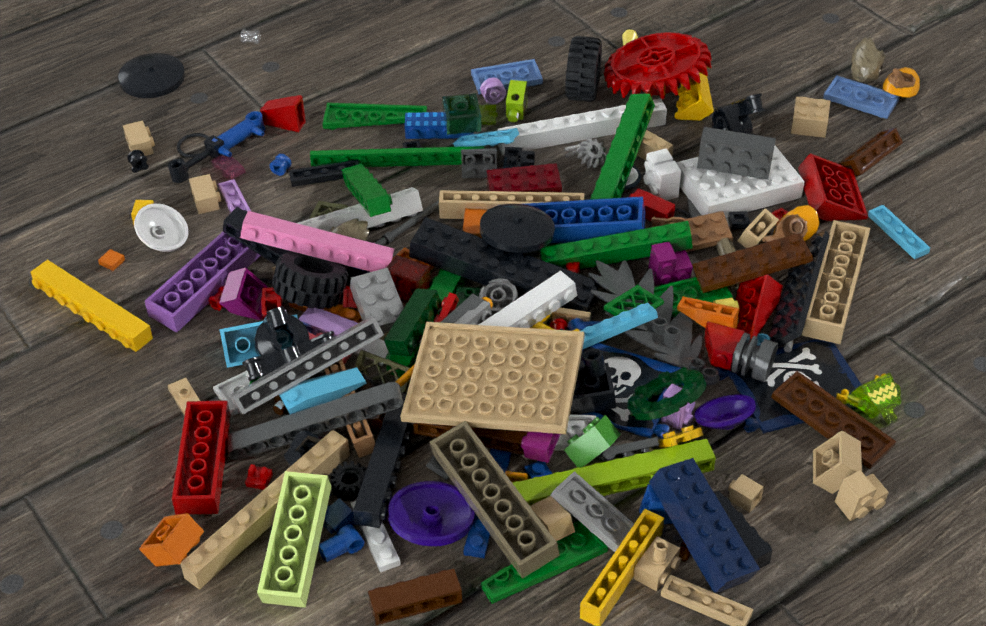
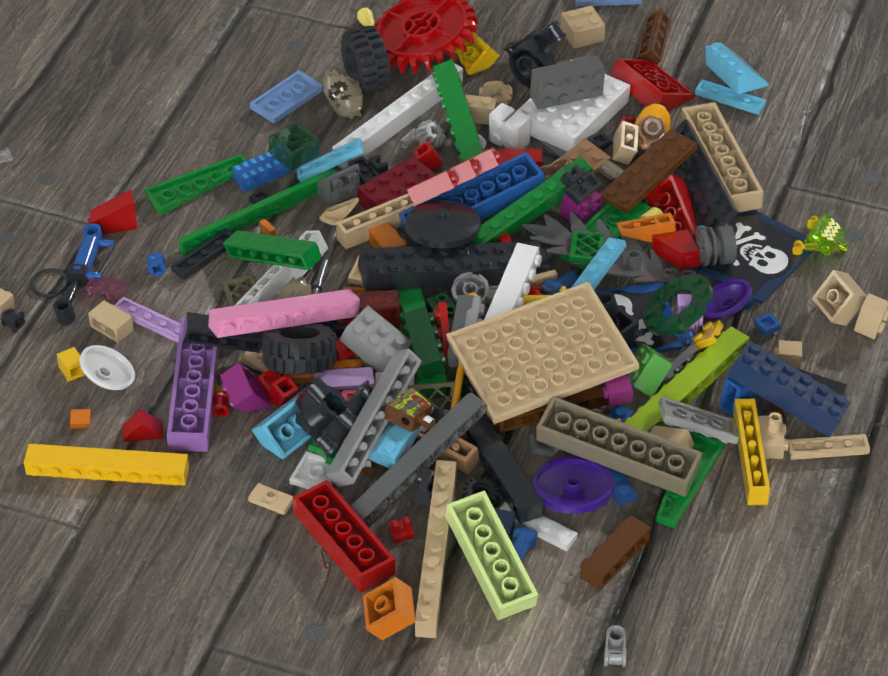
camera: 35 degrees left, 0 degrees up
(143, 287) = (142, 427): none -> red slope
(333, 373) = (410, 411): none -> reddish brown torso
(389, 176) = (267, 228): none -> orange tile
(459, 184) = (338, 212): none -> tan slope
(493, 90) = (289, 113): lavender wheel -> none
(516, 108) = (322, 121): lime torso -> none
(548, 91) = (343, 94): none -> dark tan head
(567, 191) = (454, 176): none -> arch
(572, 170) = (428, 156): none -> red brick
(665, 245) = (580, 185): none -> black plate
(685, 143) = (497, 90): none -> tan tile
(750, 454) = (767, 324): none -> blue plate
(831, 416) = (799, 265): reddish brown plate -> none
(922, 207) = (733, 69): none -> medium azure slope

